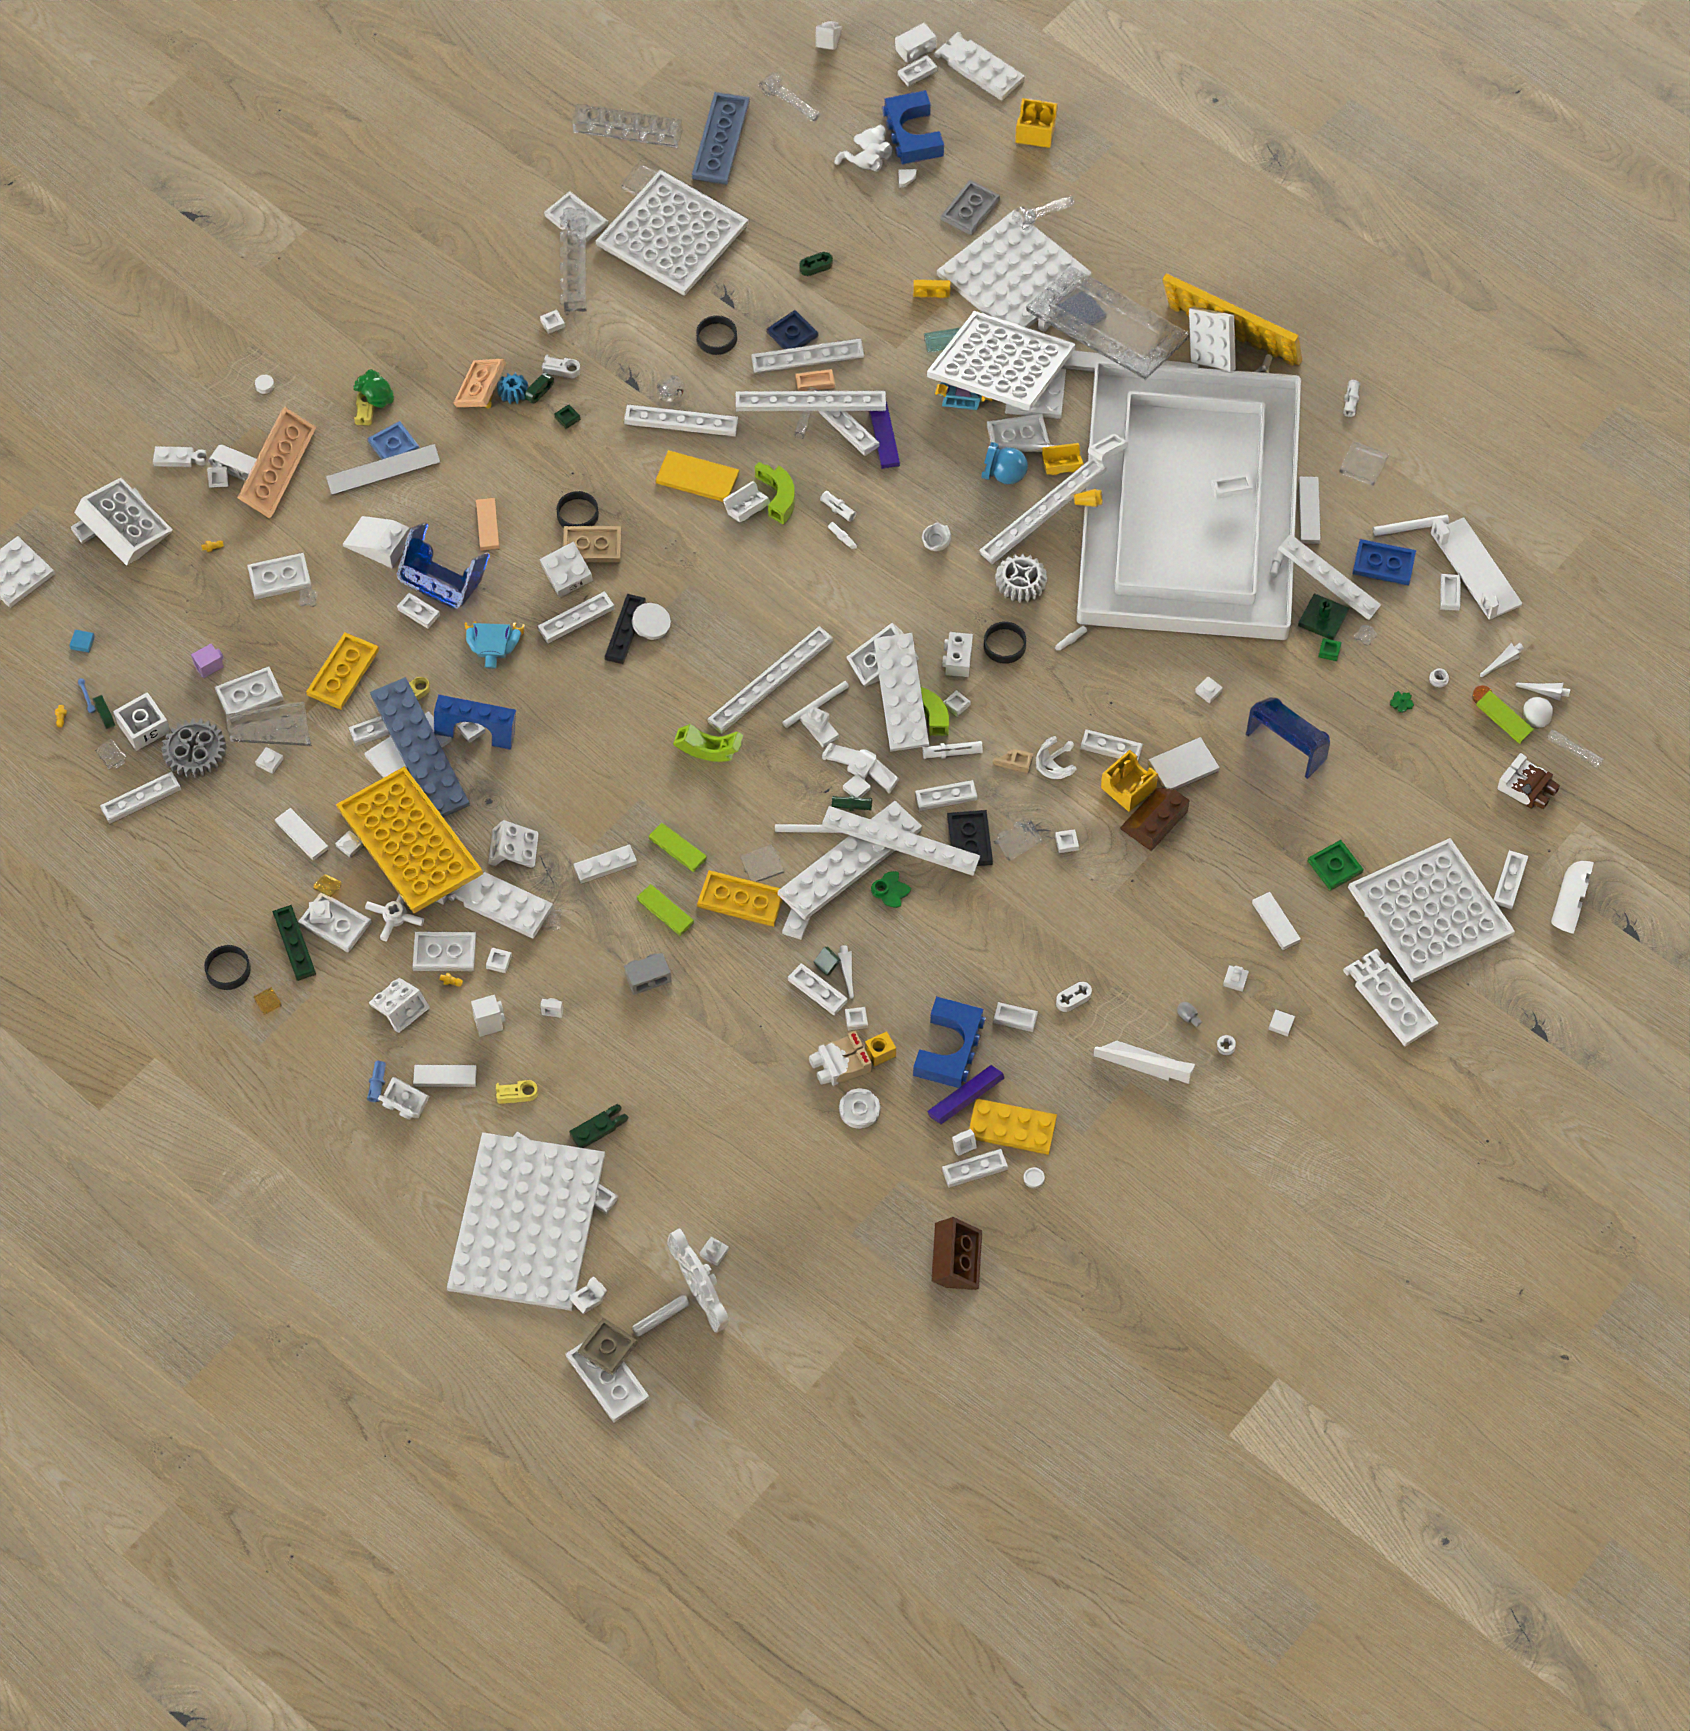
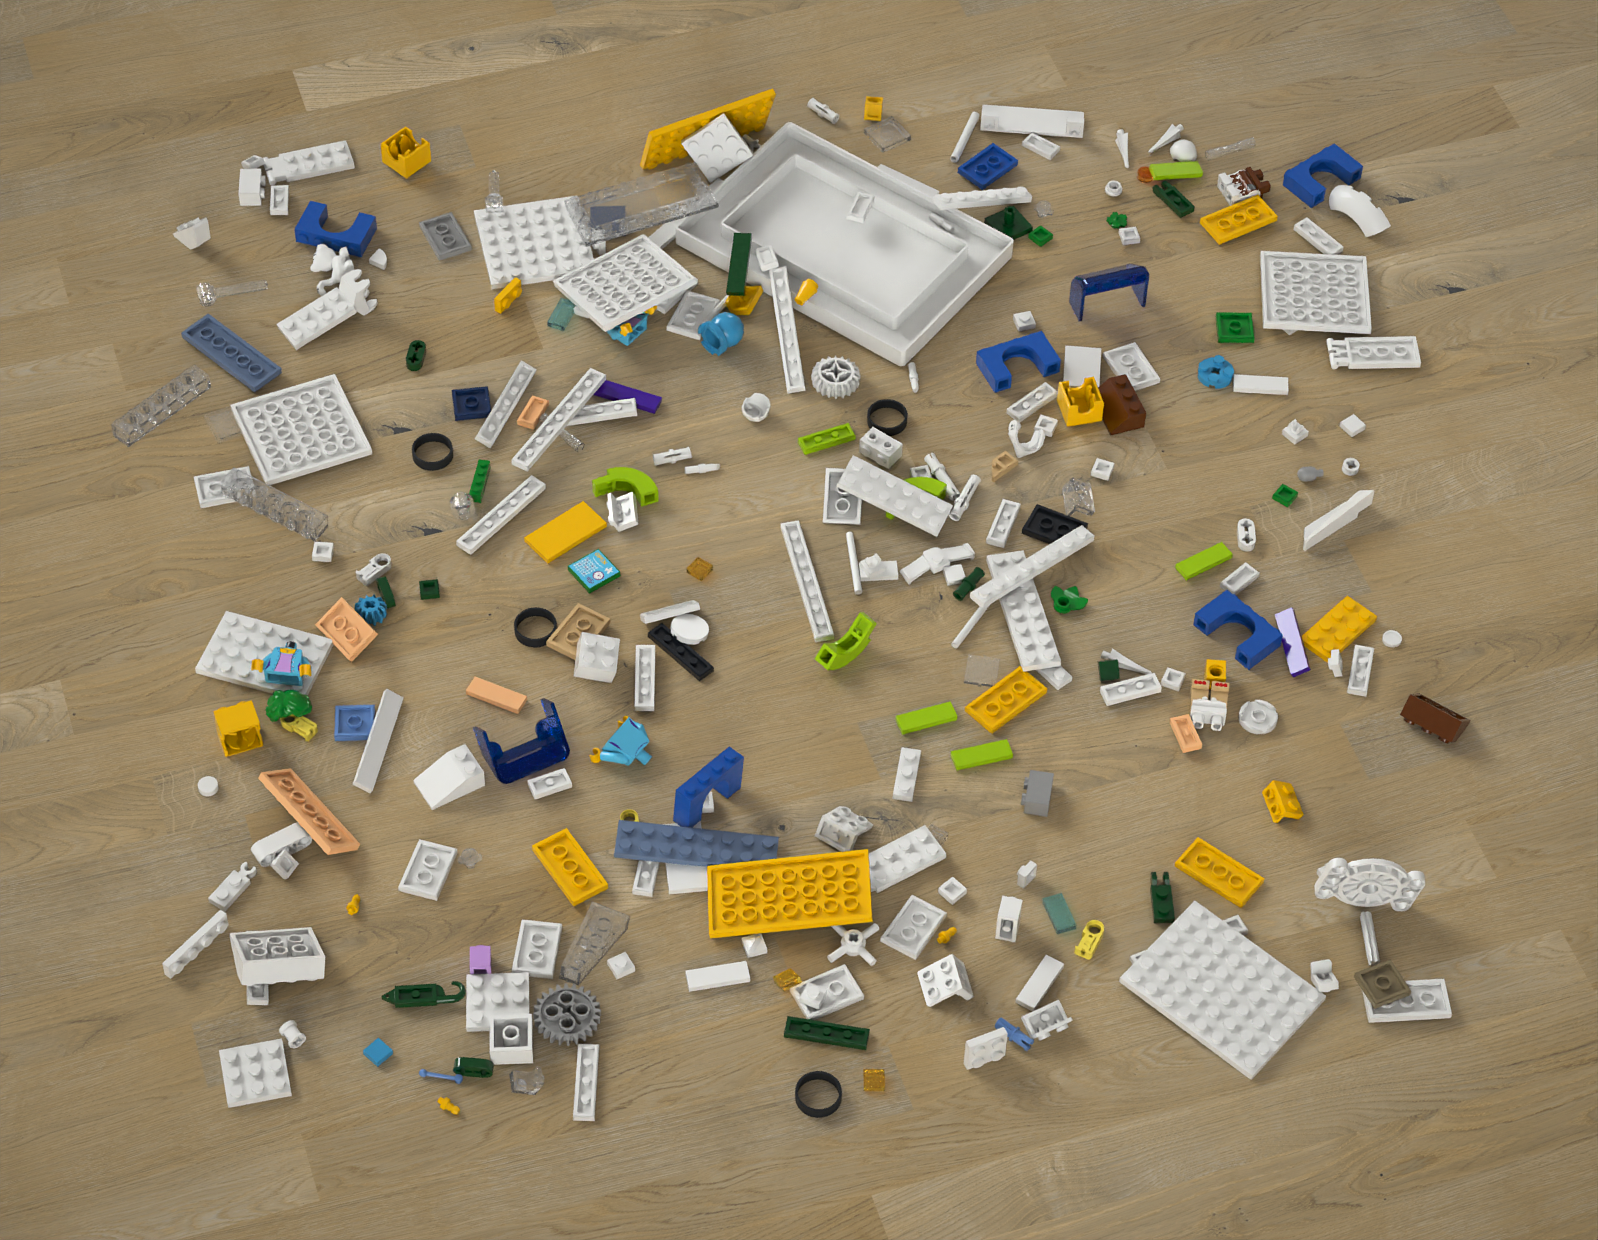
camera: 60 degrees left, 10 degrees down
(61, 574) = (292, 1034): none -> white bush
(105, 463) = (196, 943): none -> white plate
(152, 640) = (422, 995): none -> dark green plate
(181, 693) = (495, 996): none -> white plate
(326, 368) = (238, 728): none -> yellow piece
(339, 1064) = (985, 1048): none -> white plate
(405, 360) = (284, 665): none -> torso
(419, 346) = (245, 638): none -> white plate
(530, 1054) = (1059, 913): none -> clear light blue tile
(657, 1159) = (1219, 872): none -> yellow tile
(659, 597) = (669, 611): none -> white tile
(669, 519) = (594, 571): none -> tile
(708, 385) = (480, 480): none -> green piece
(726, 594) = (699, 568): none -> clear yellow tile
(771, 1172) = (1282, 801): none -> yellow bracket
(795, 1057) = (1185, 733): none -> light nougat plate
(814, 176) = (328, 310): none -> white hinge
(946, 28) = (253, 162): none -> white tile
(946, 609) = (826, 438): none -> lime tile
(968, 713) = (939, 472): none -> white pin
(1016, 977) = (1203, 561): none -> lime tile
(1086, 431) = (739, 264): none -> dark green tile
(1087, 770) = (1047, 424): none -> white plate
(1136, 688) = (1032, 347): none -> blue arch
(1148, 1006) = (1285, 495): none -> green tile
(1216, 804) = (1133, 363): none -> white tile
(1267, 866) = (1219, 365): none -> dark azure plate
(1382, 434) = (873, 108): none -> yellow brick
(1388, 721) = (1129, 235): none -> white tile
(1464, 735) = (1173, 199): none -> dark green hinge
(1481, 800) = (1238, 219): none -> yellow plate
(1626, 839) = (1331, 160): none -> blue arch

